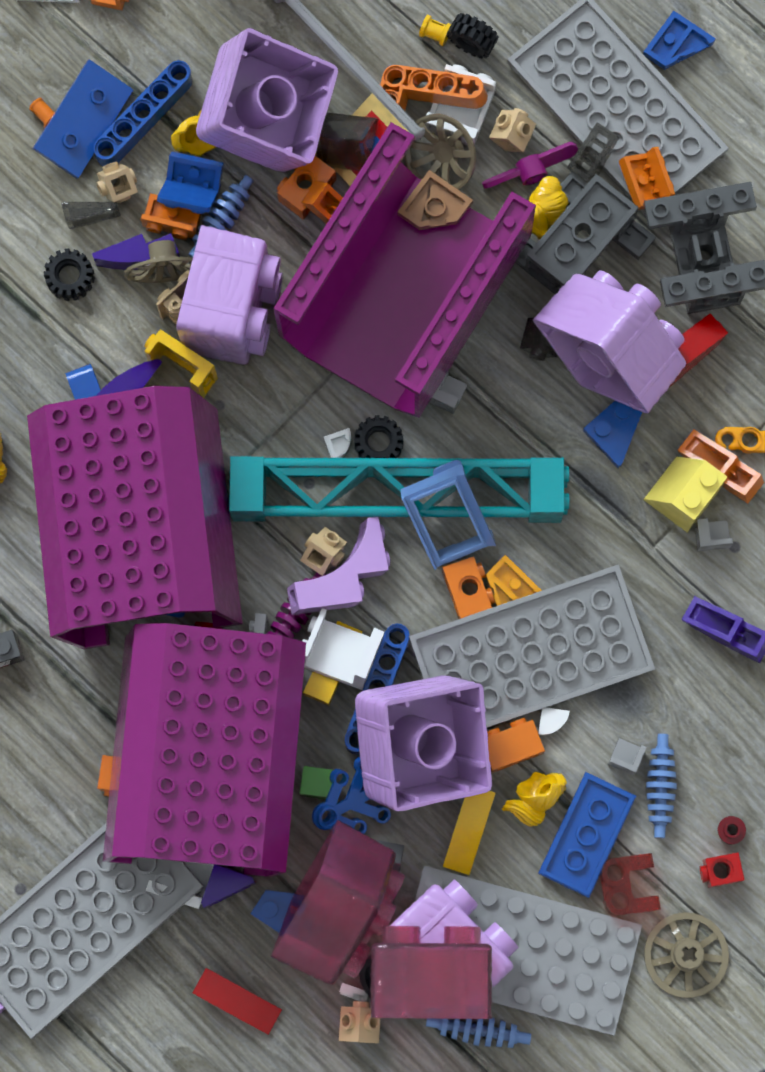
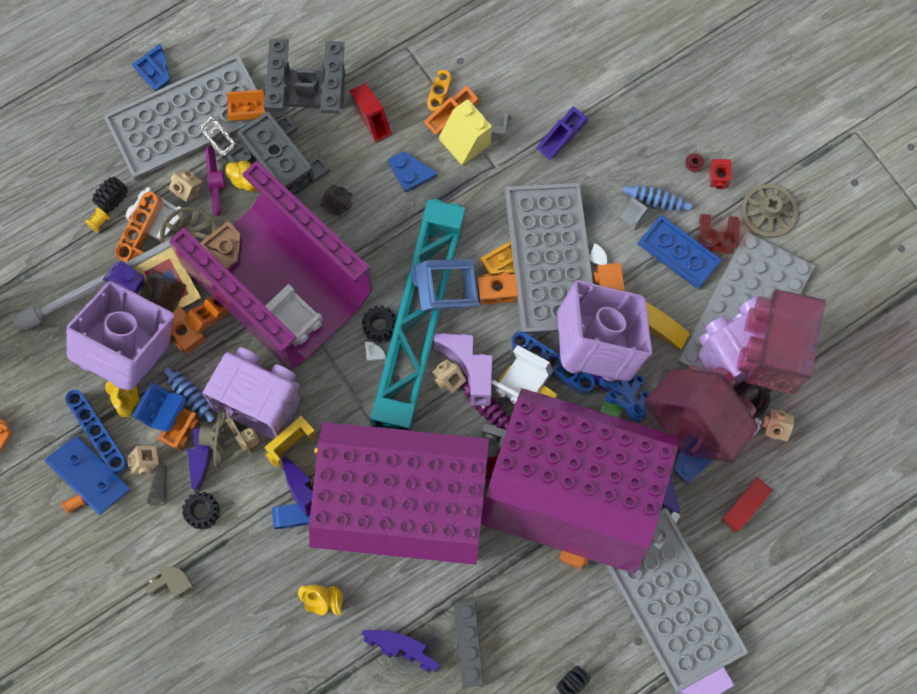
camera: 80 degrees left, 5 degrees down
(349, 87) = (125, 276): none -> dark purple torso
(359, 321) = (294, 314): none -> white panel
(536, 796) = (647, 275): yellow hair -> none
(613, 339) = (356, 146): lavender brick -> none

